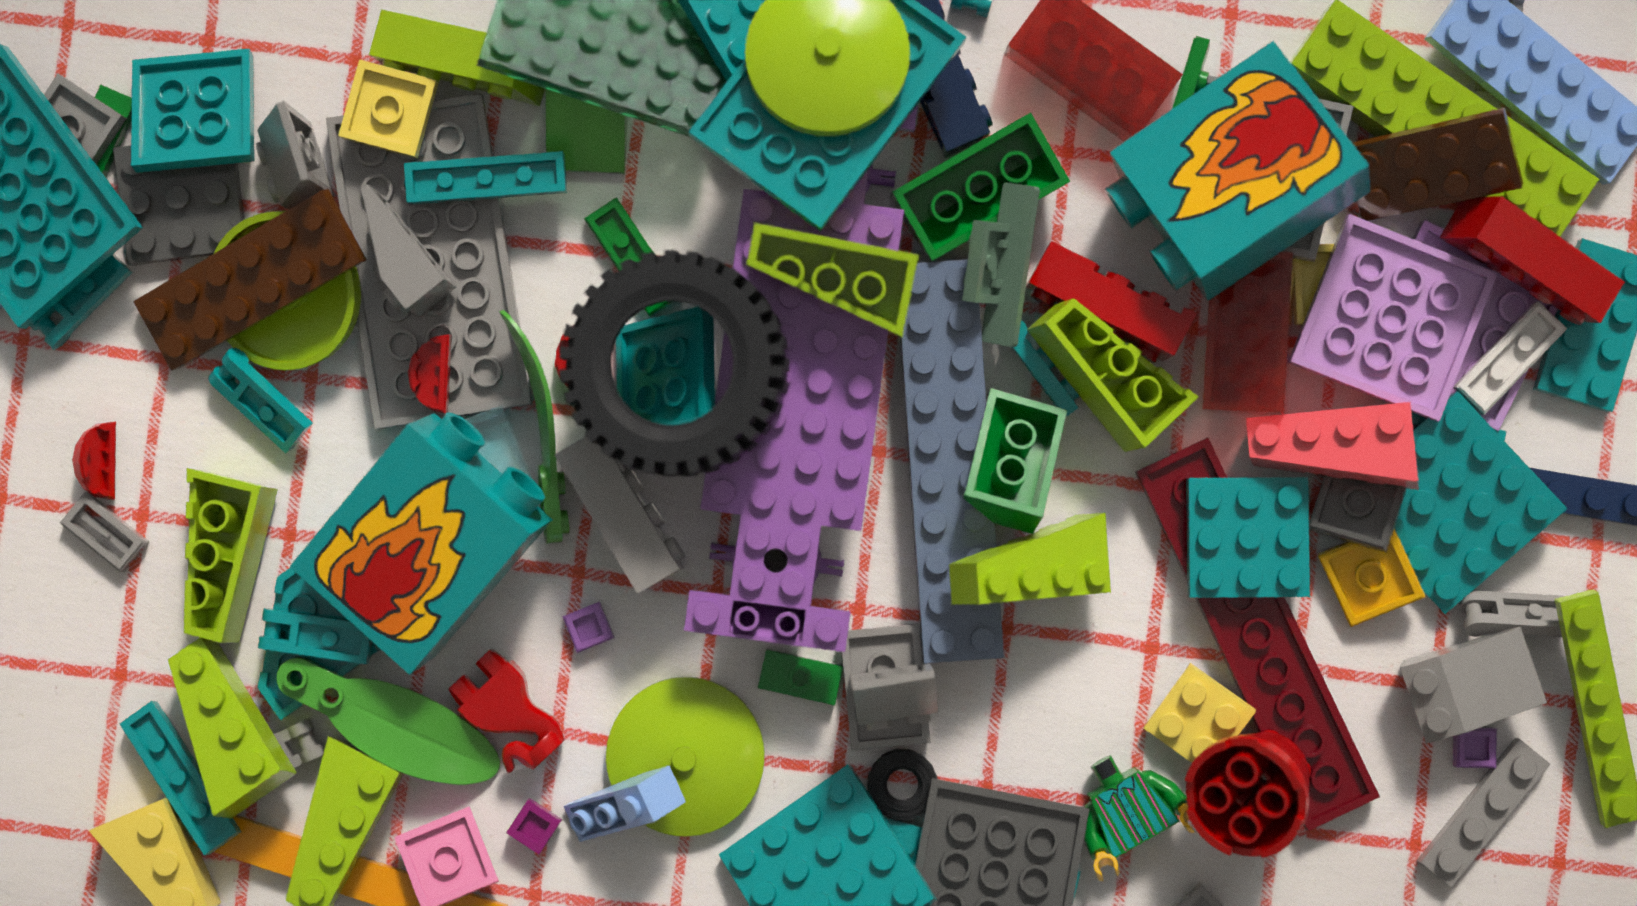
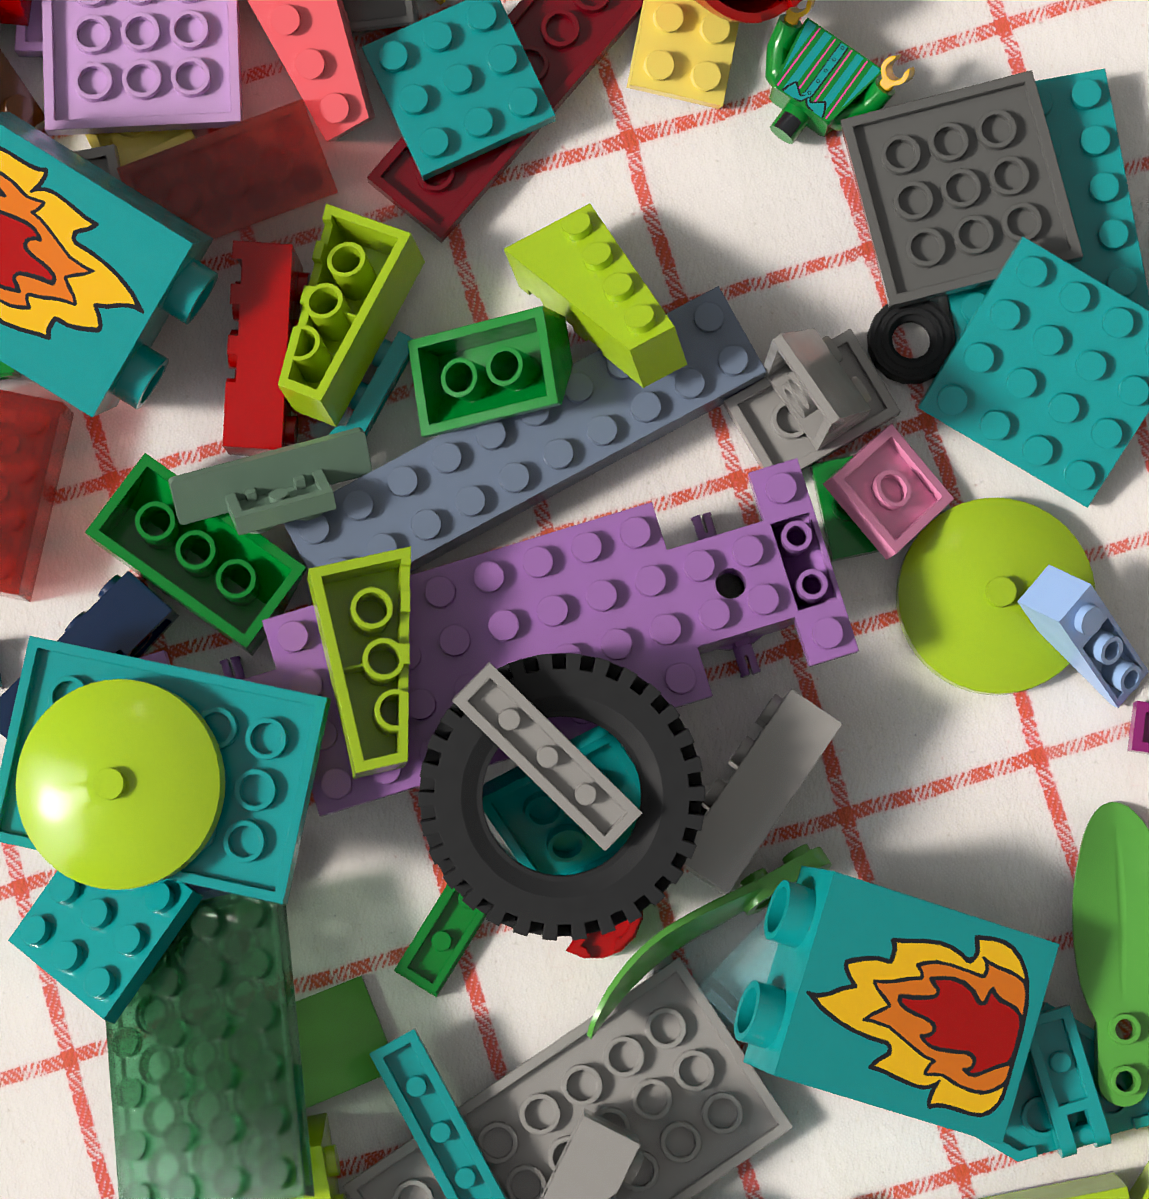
camera: 115 degrees left, 5 degrees down
(431, 373) = (698, 1089): red plate -> none
(505, 707) = (1040, 823): red hips -> none
(588, 627) = (902, 773): medium lavender tile -> none
(702, 362) = (546, 756): none -> light grey plate
(795, 712) = (888, 491): none -> bright pink plate

